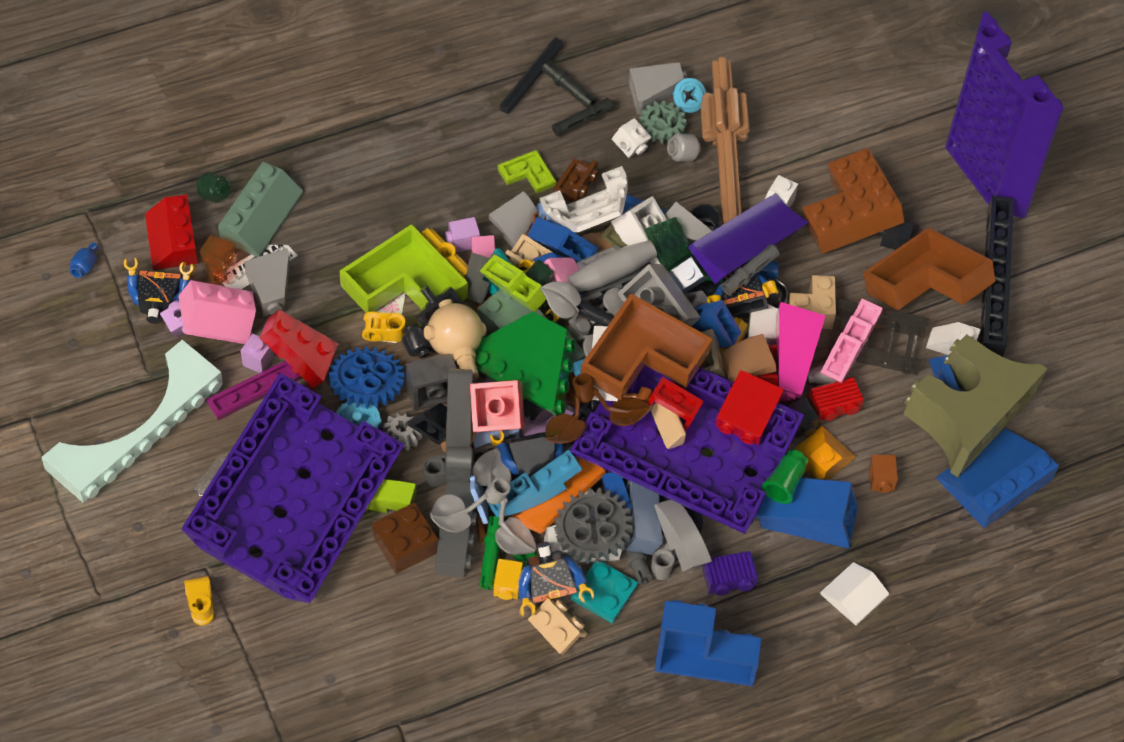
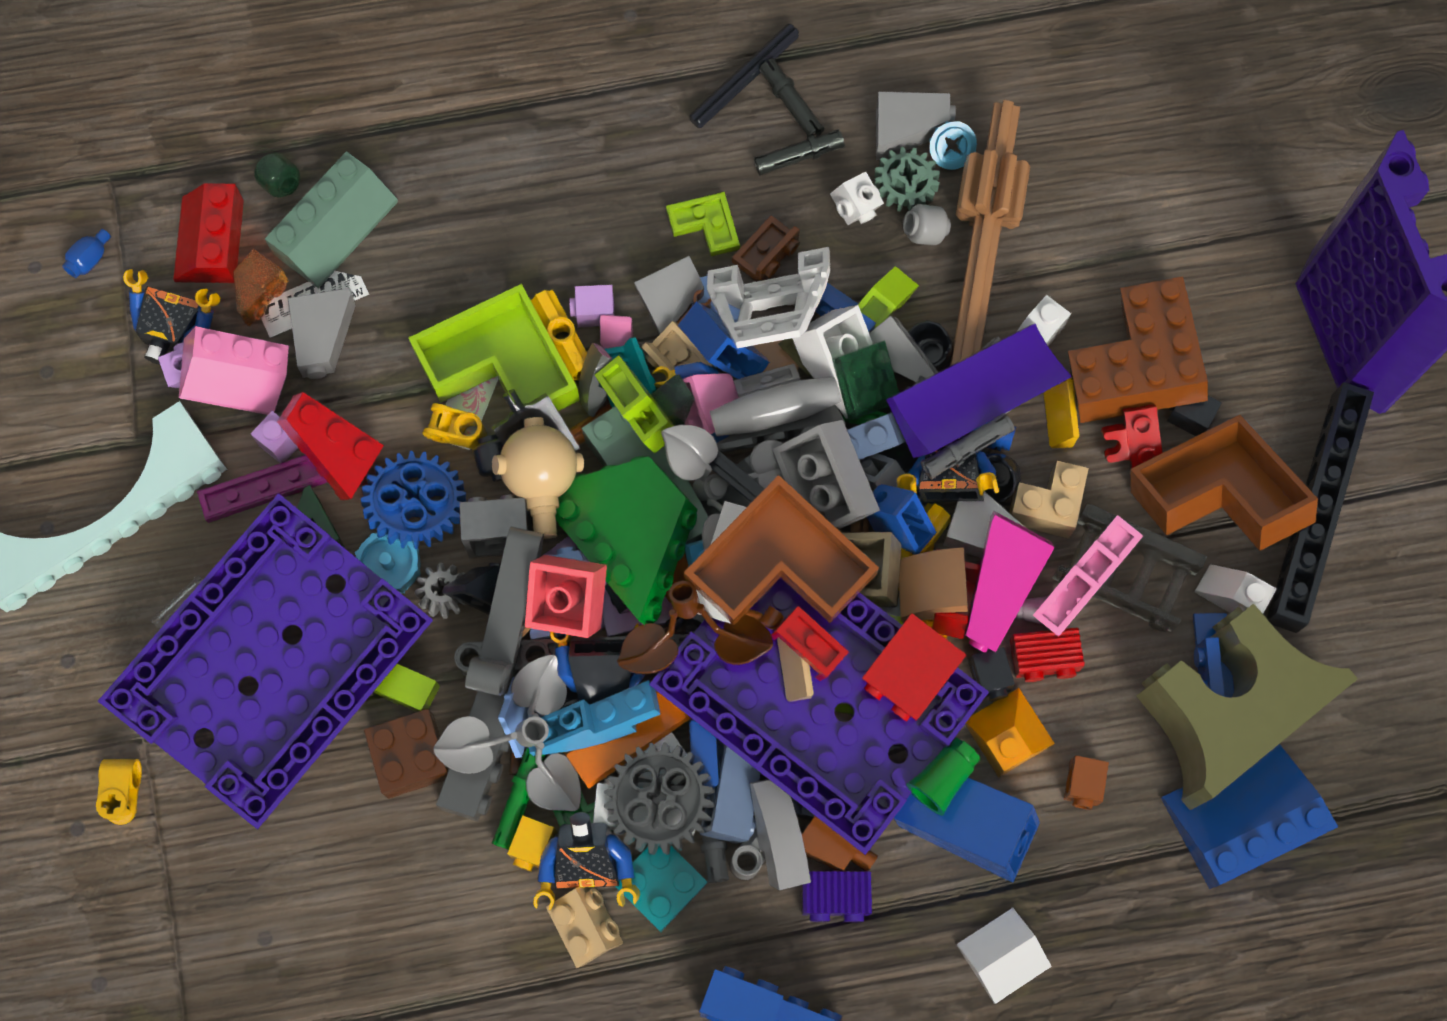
camera: 15 degrees right, 15 degrees up
(669, 193) = (887, 296): none -> lime slope
(722, 539) = (831, 849): none -> dark orange torso
(807, 251) = (1061, 415): none -> yellow slope
(862, 254) = (1137, 439): none -> red plate

